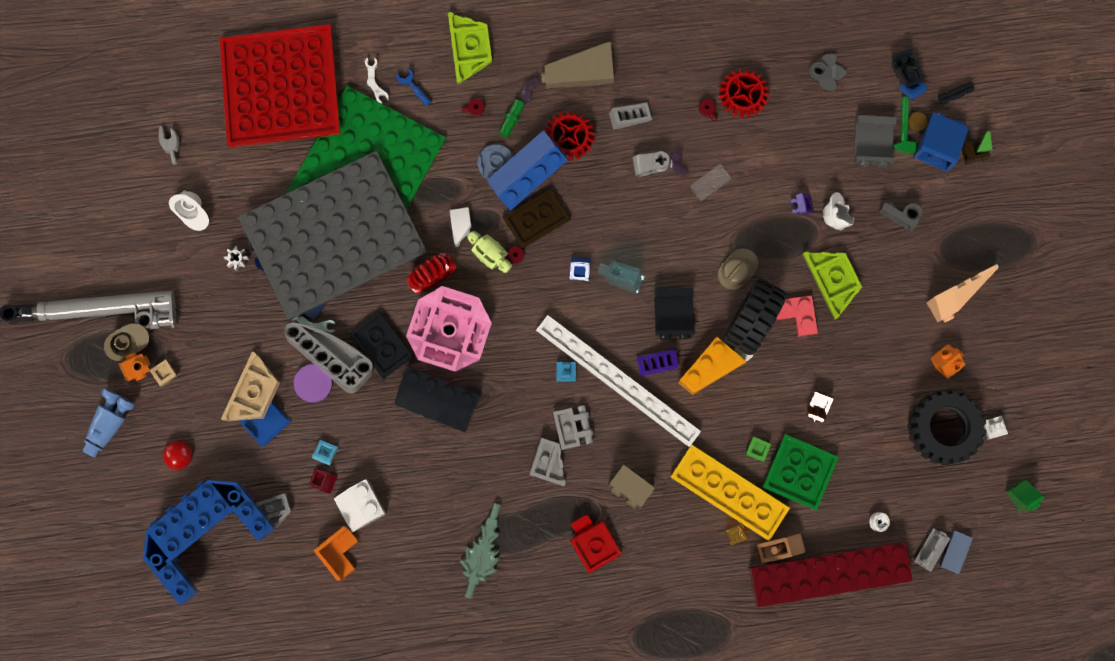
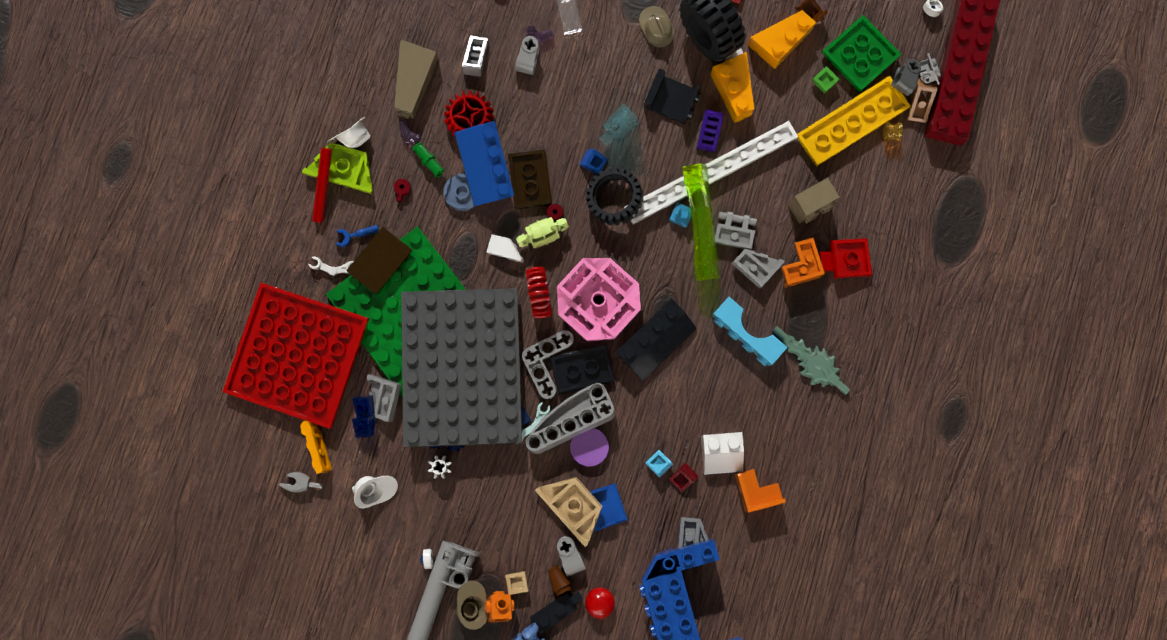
camera: 65 degrees left, 0 degrees up
(150, 285) = (427, 559): none -> white tile
(153, 419) = (555, 611): none -> black hinge
(181, 409) = (559, 581): none -> reddish brown cone
(205, 410) = (570, 559): none -> light grey piece
(206, 142) = (316, 446): none -> light orange hinge
(248, 173) = (365, 416): none -> clear blue slope
(276, 180) = (385, 397): none -> light grey wing
(369, 304) = (538, 362): none -> light grey beam
(397, 118) = (379, 260): none -> dark brown tile
(443, 35) = (322, 185): none -> red axle
(489, 456) = (766, 349): none -> medium azure arch
(501, 42) = (353, 136): none -> white piece
(549, 322) = (601, 180): none -> black tyre
(567, 508) = (807, 268): none -> orange panel
(591, 374) = (704, 236): none -> clear neon green arch
(779, 391) = (781, 38): none -> light orange wedge
(794, 523) = (906, 77): none -> dark grey piece
(810, 543) = (929, 70): none -> light grey hinge

